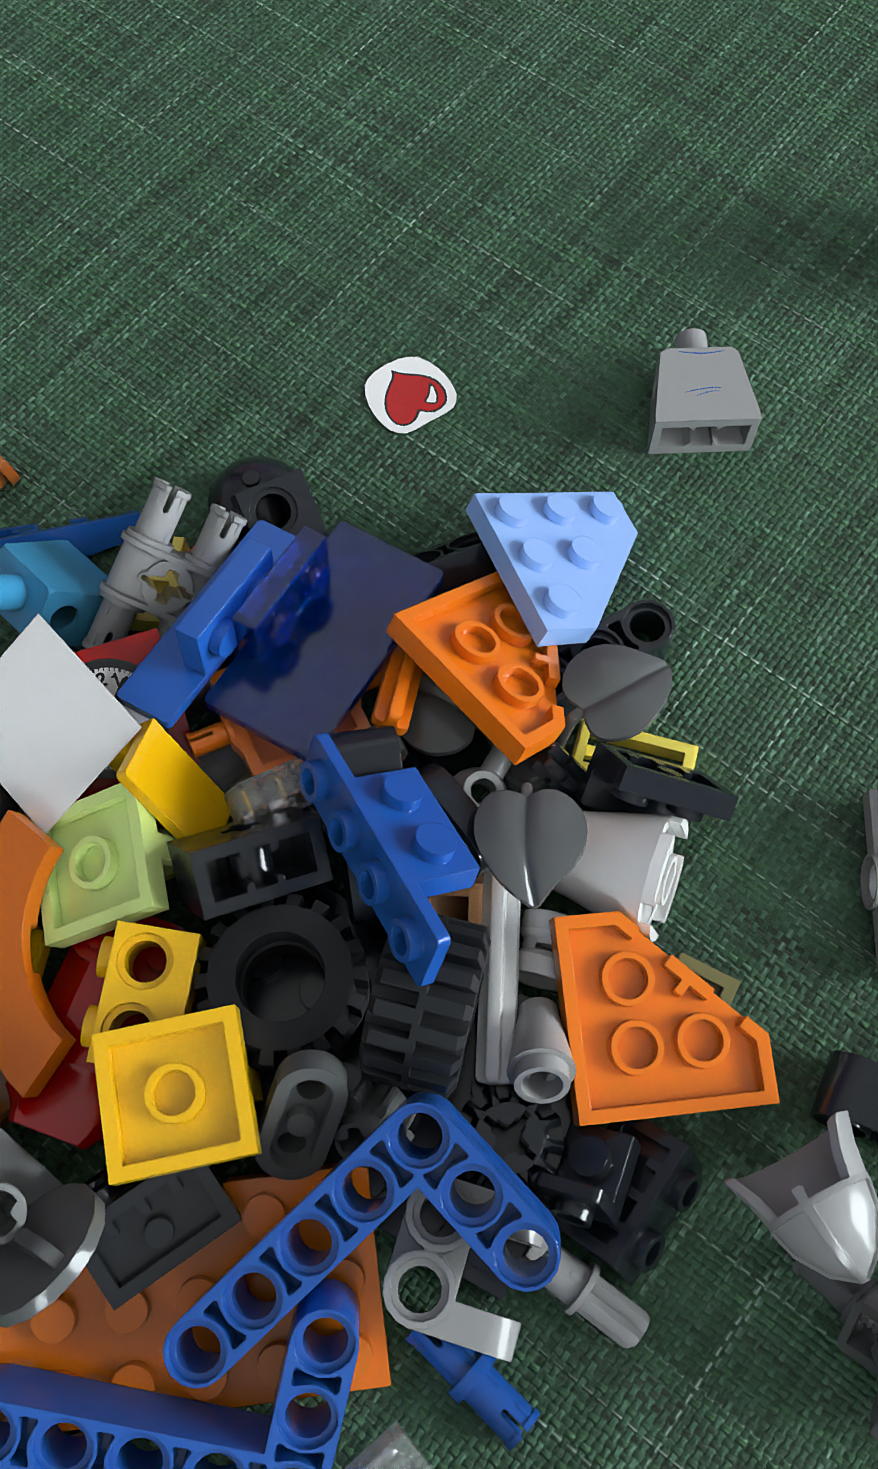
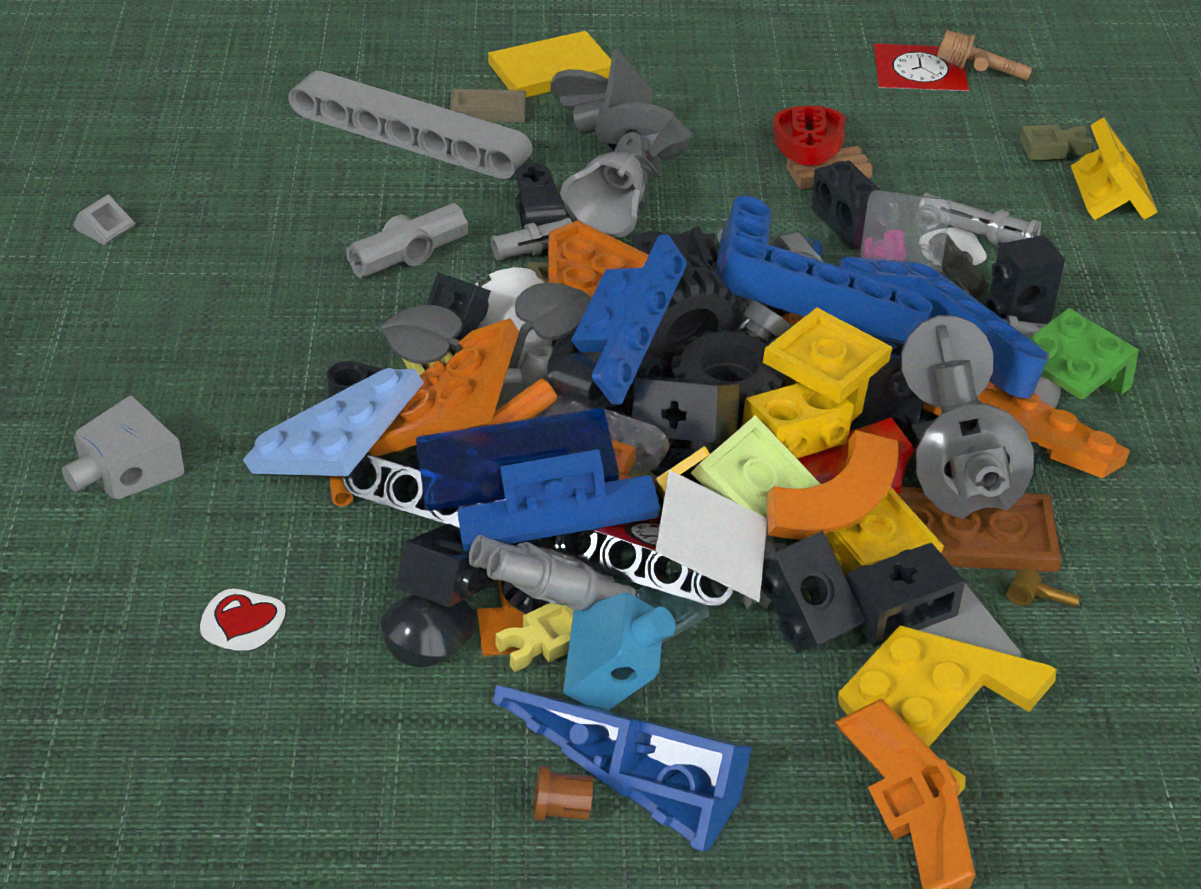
camera: 130 degrees left, 25 degrees down
(804, 1043) = (507, 245): none -> light grey pin

